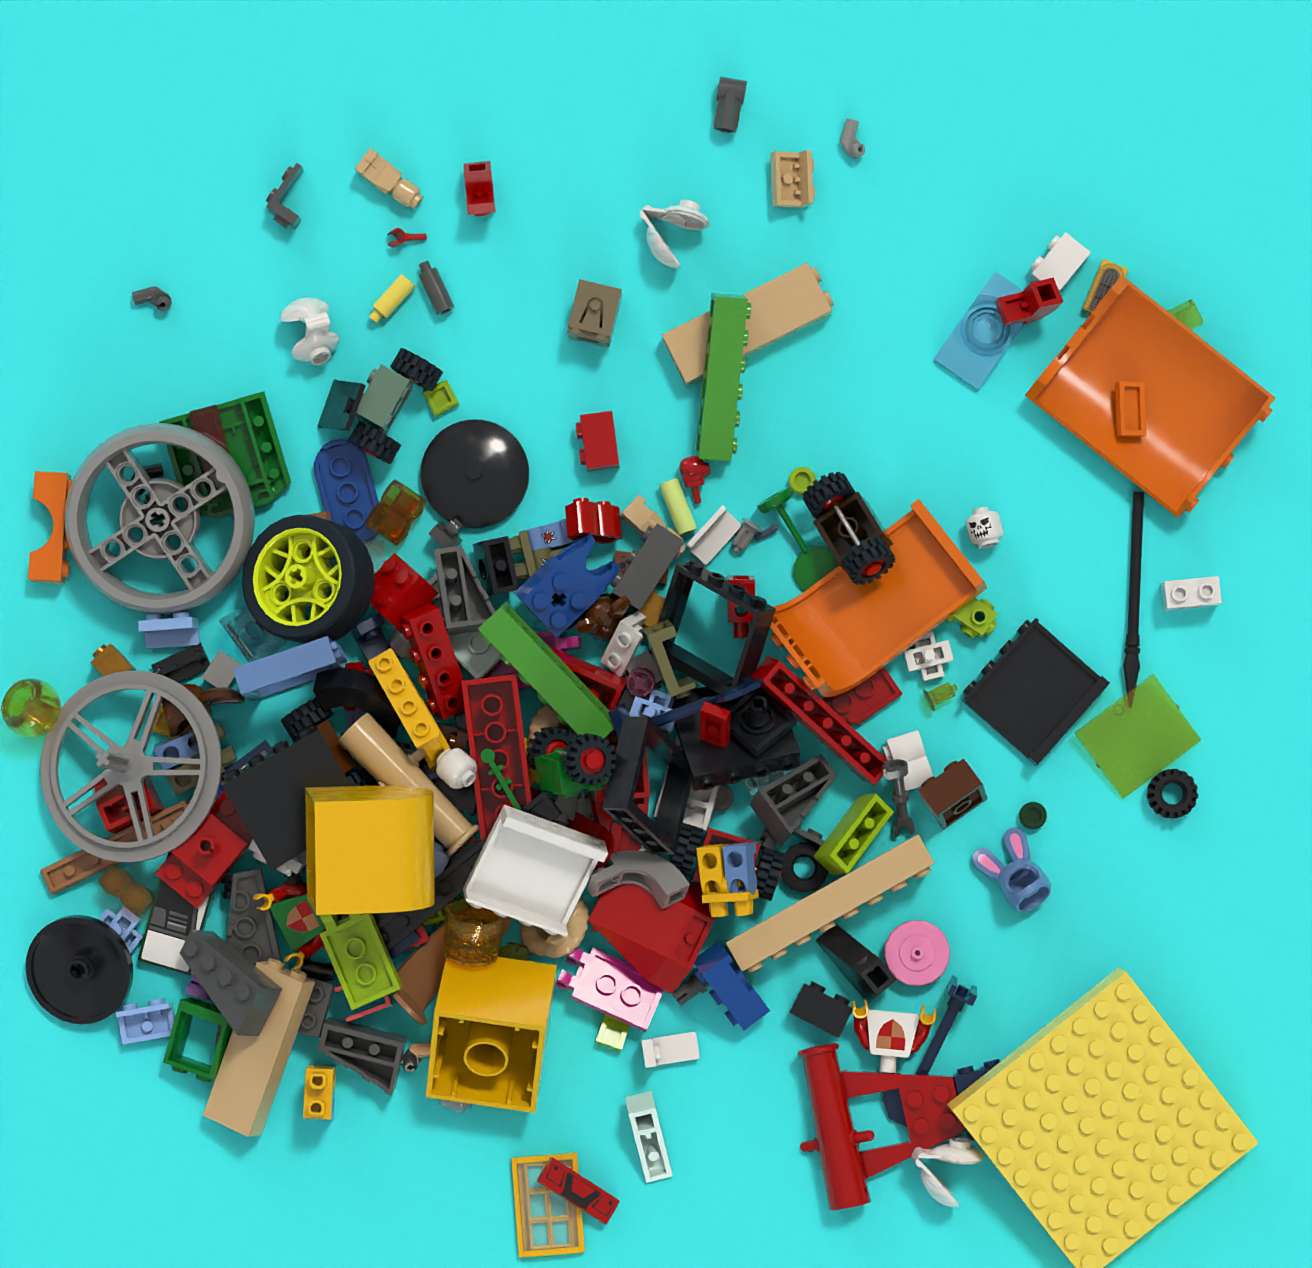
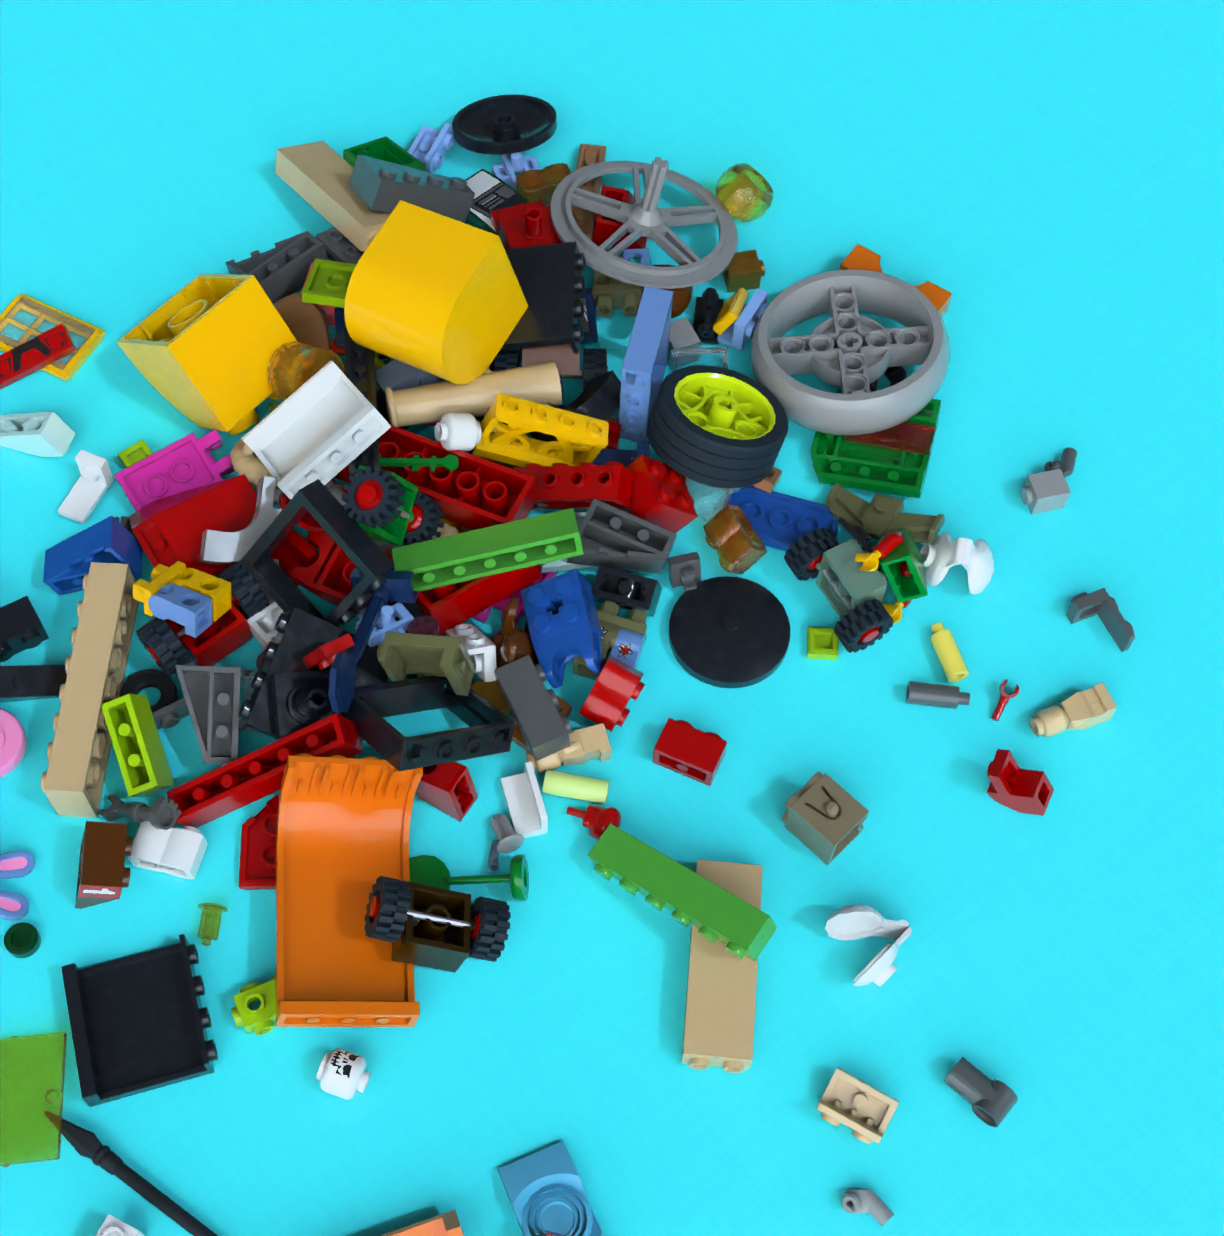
camera: 115 degrees right, 25 degrees down
(169, 645) = (730, 311): none -> yellow tile
(192, 297) = (1045, 491): none -> light grey brick
(302, 411) = (882, 515): none -> olive plate
(318, 1092) = (269, 214): yellow hips -> none
(352, 367) = (902, 567): none -> green torso
(800, 479) = (523, 923): lime tile -> none
(928, 656) = (256, 930): white piece -> none

